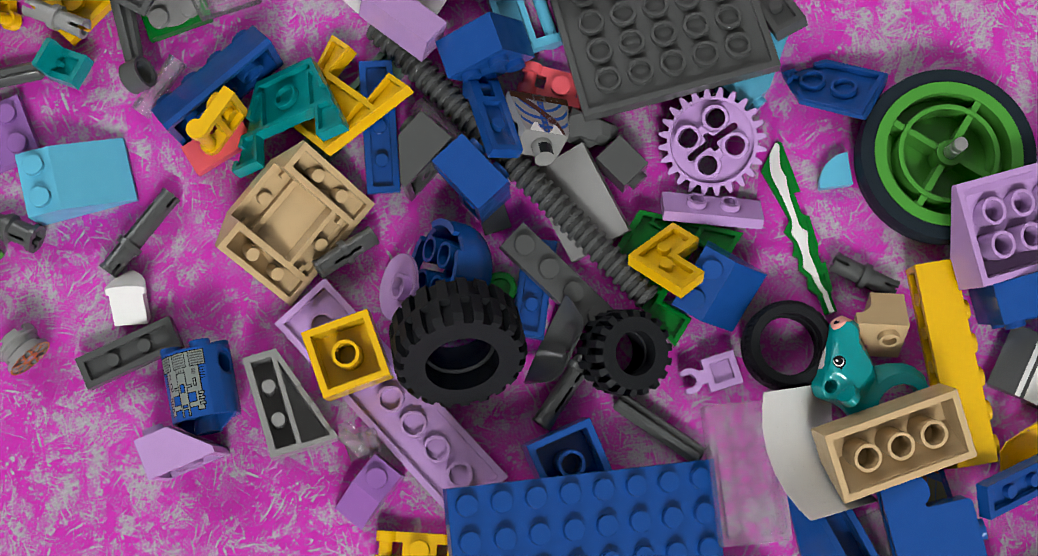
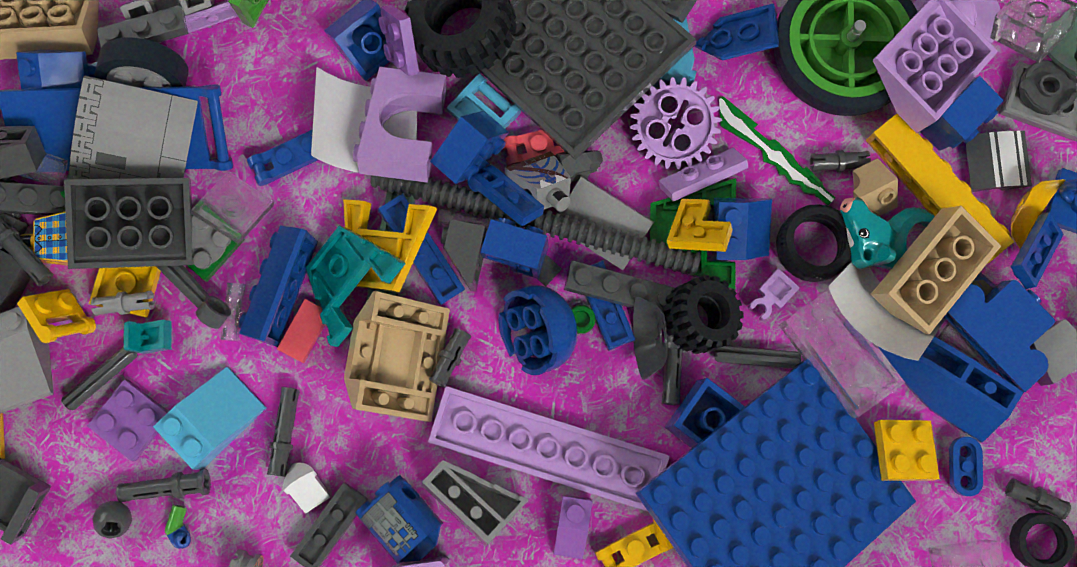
camera: 30 degrees left, 0 degrees up
(225, 113) = (299, 311): yellow plate -> none
(347, 355) = (500, 434): yellow brick -> none
(359, 441) = (545, 493): clear piece -> none
(397, 283) = (506, 361): lavender dish -> none
(452, 313) = (579, 377): black tyre -> none
(622, 164) = (619, 177): dark grey brick -> none
(836, 173) = (776, 97): medium azure tile -> none

